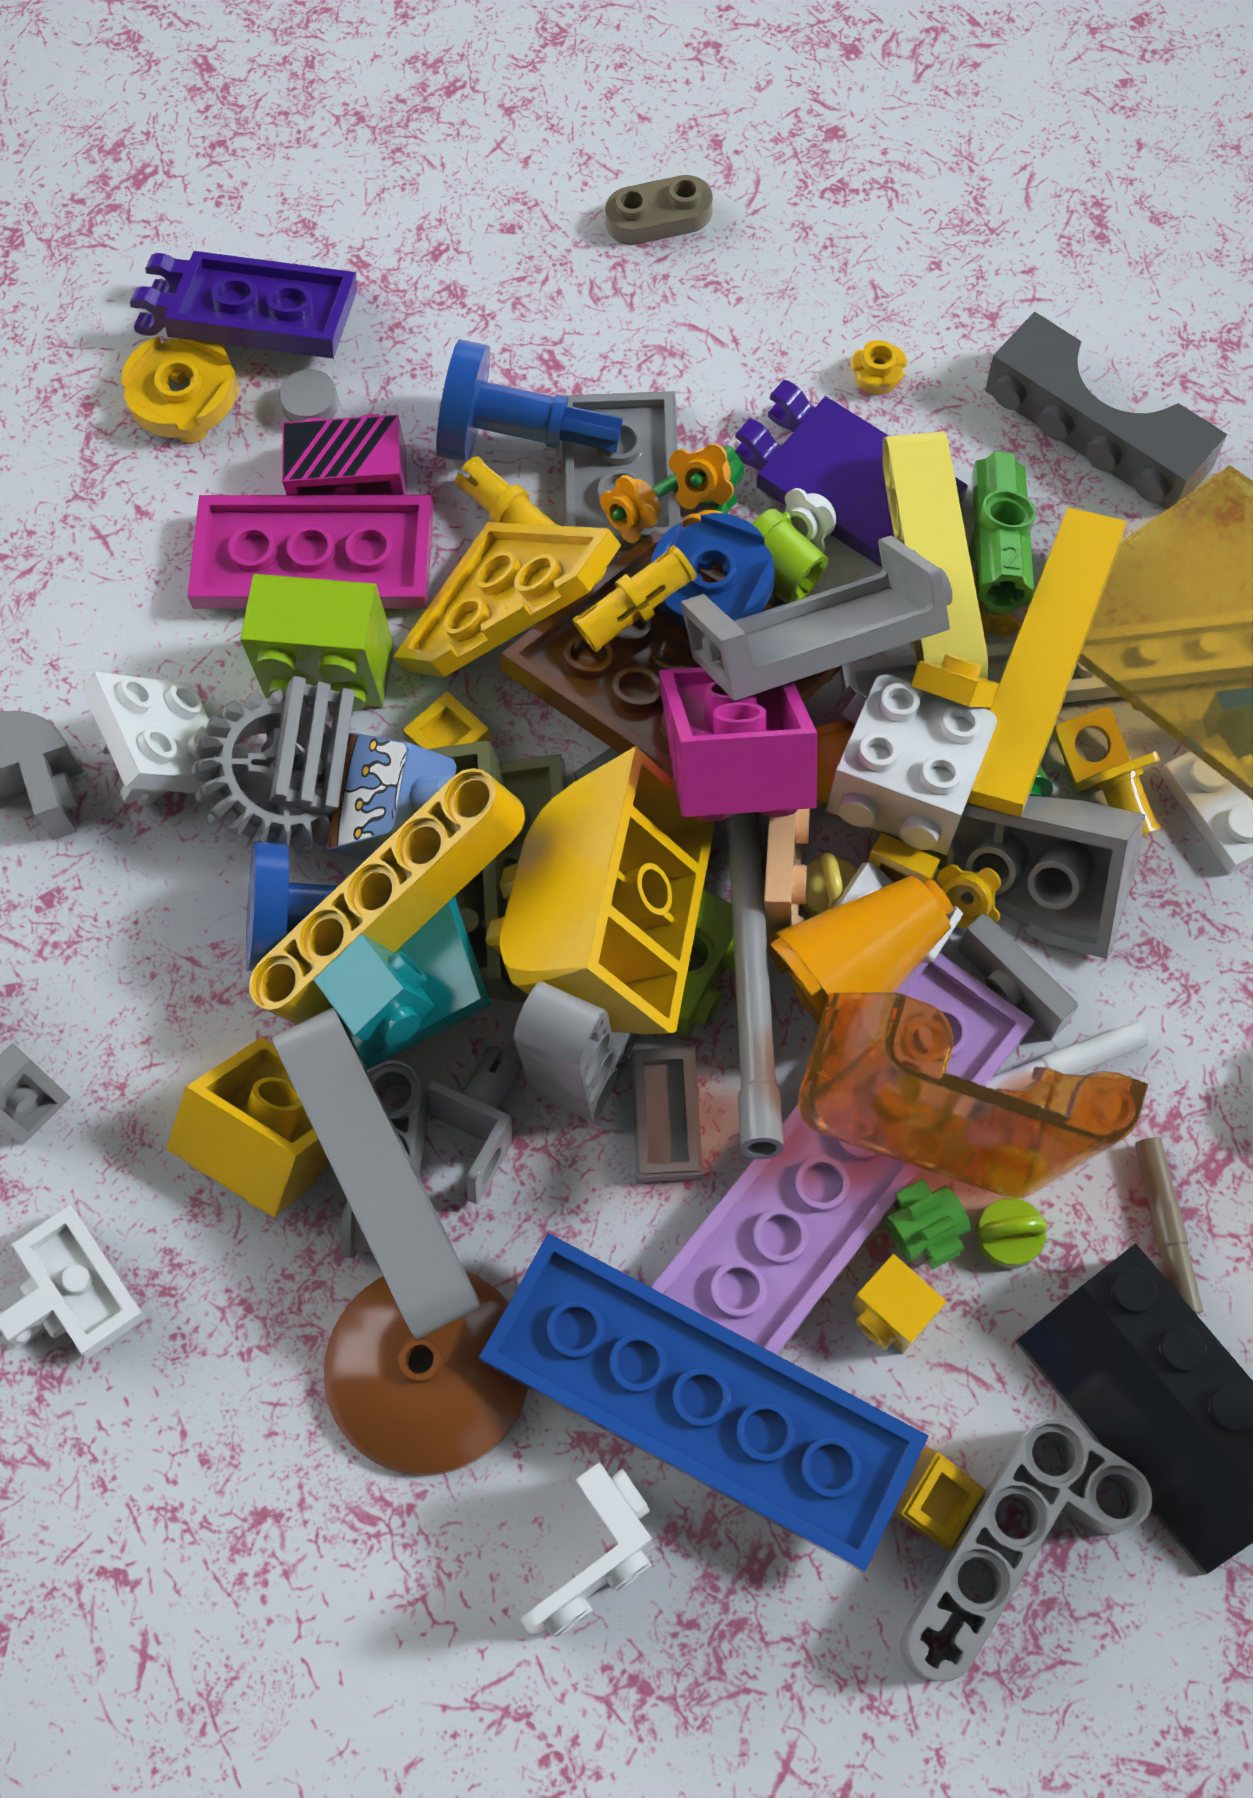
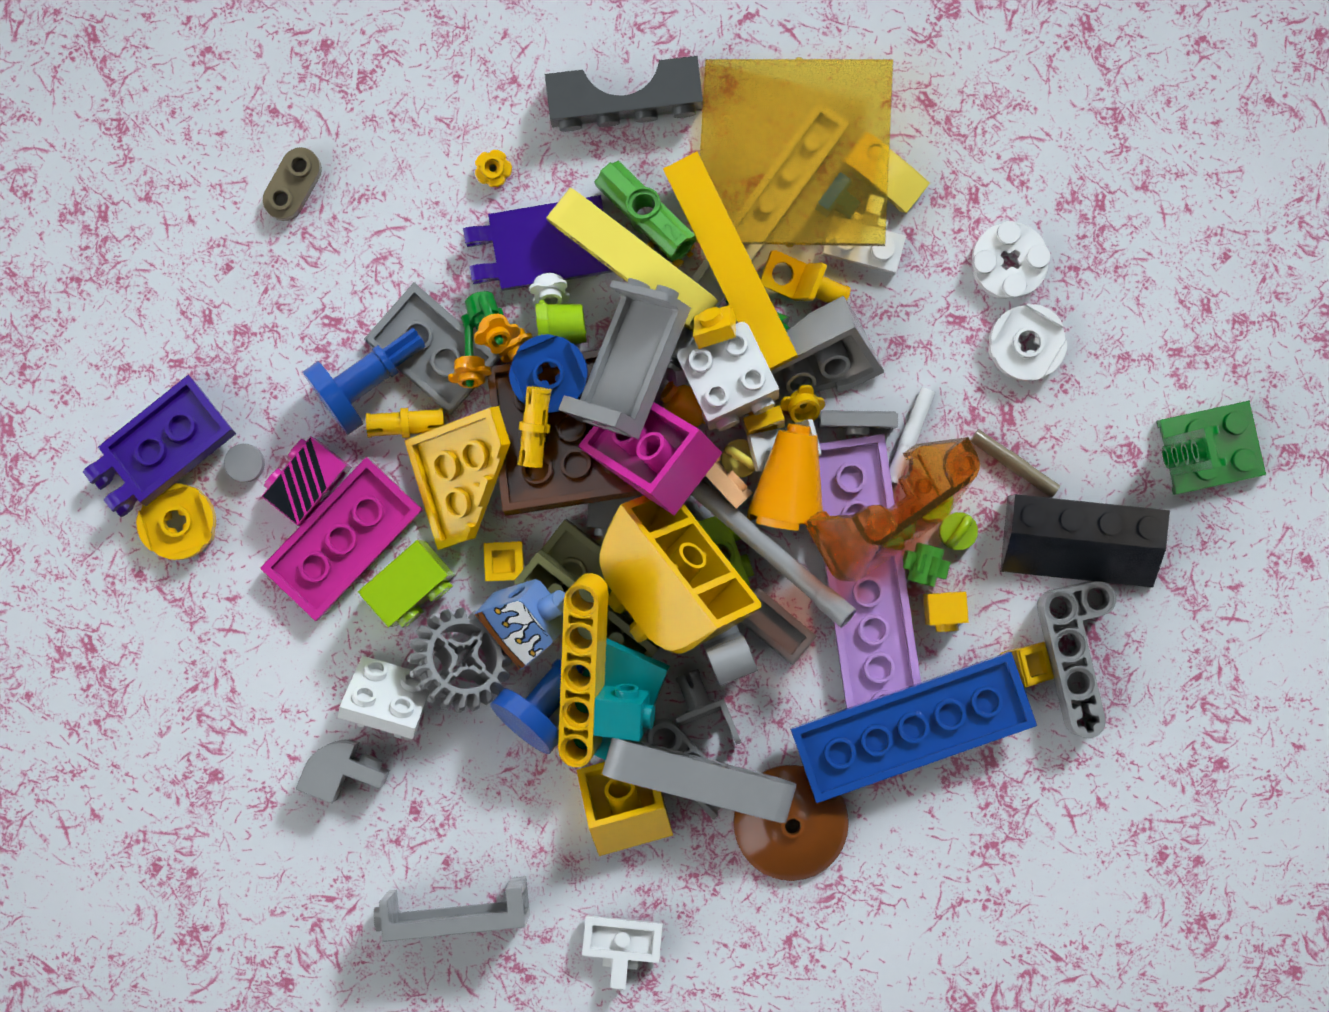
camera: 55 degrees left, 20 degrees up
(321, 697) = (478, 626): light grey tile -> none
(620, 1509) = (926, 799): white bracket -> none

